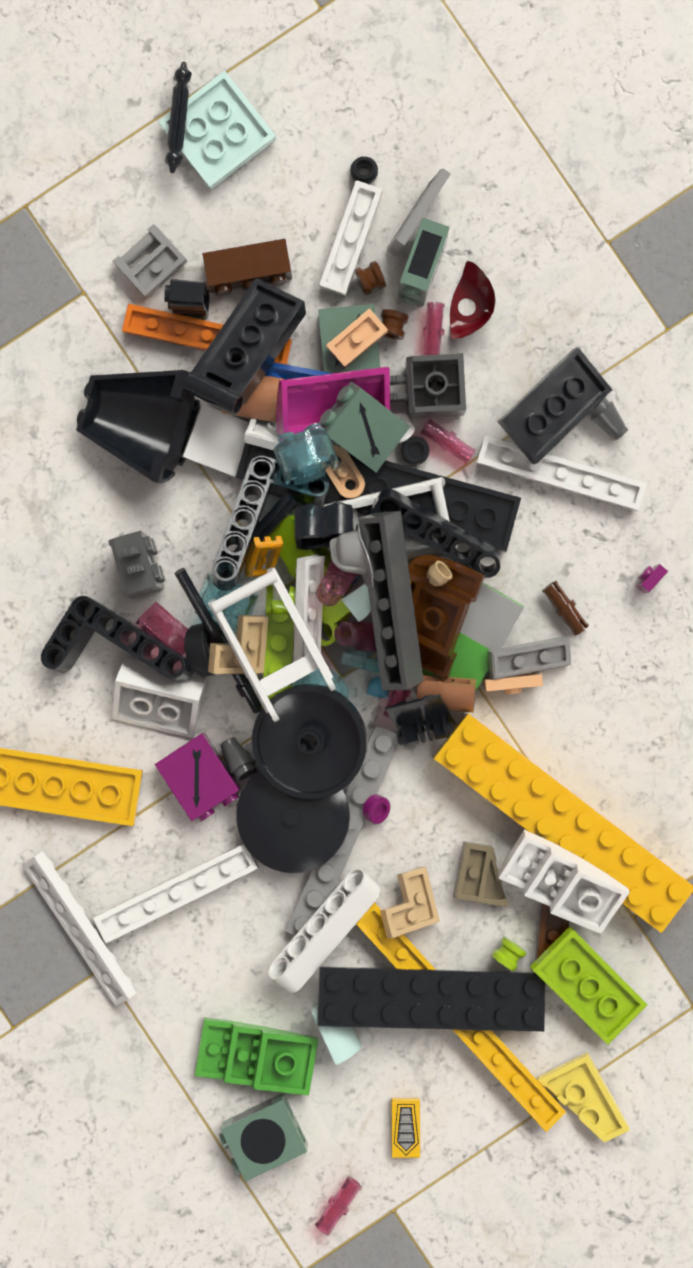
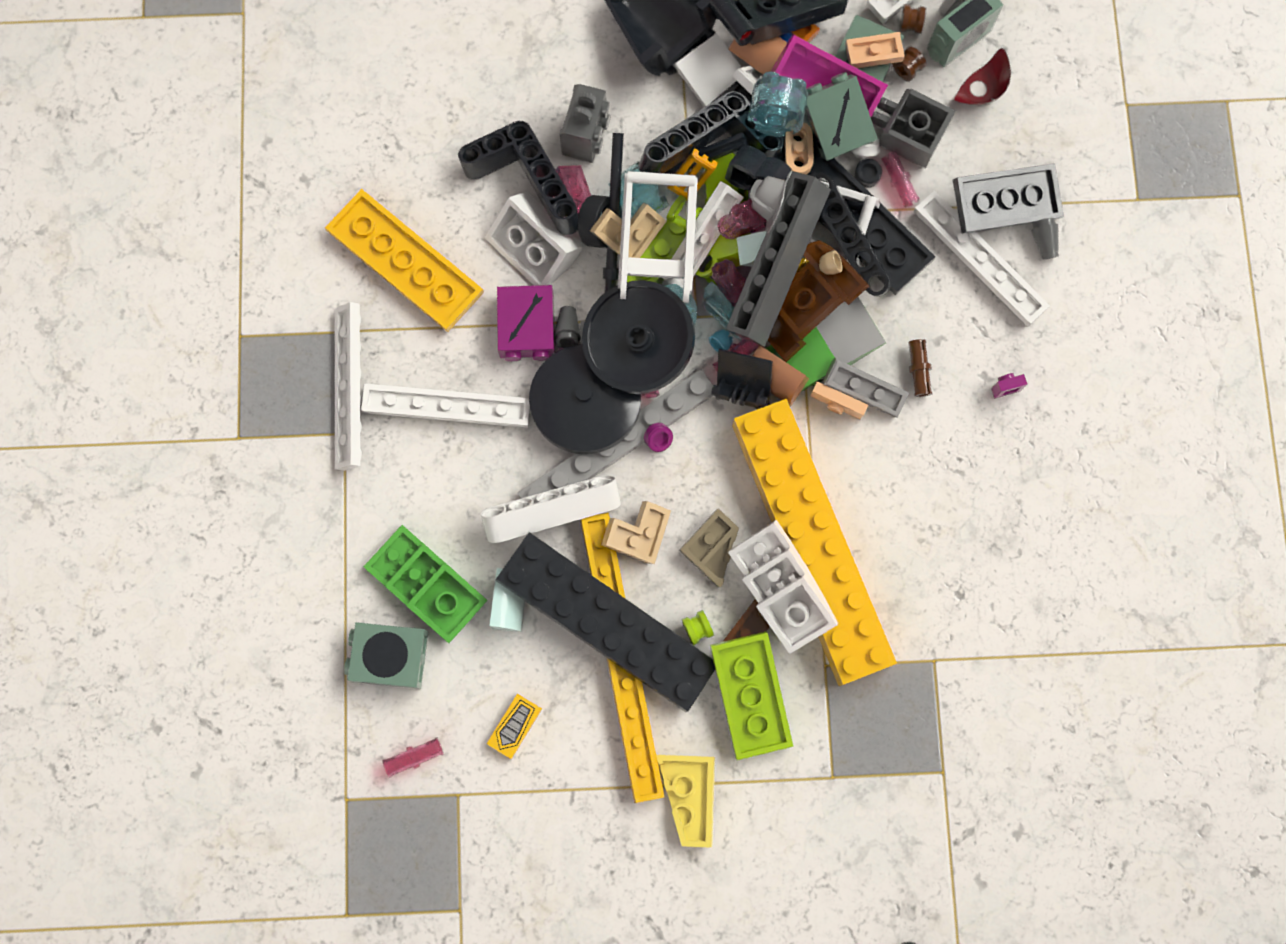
camera: 25 degrees right, 10 degrees down
(433, 329) = (941, 87): clear pink pin -> none

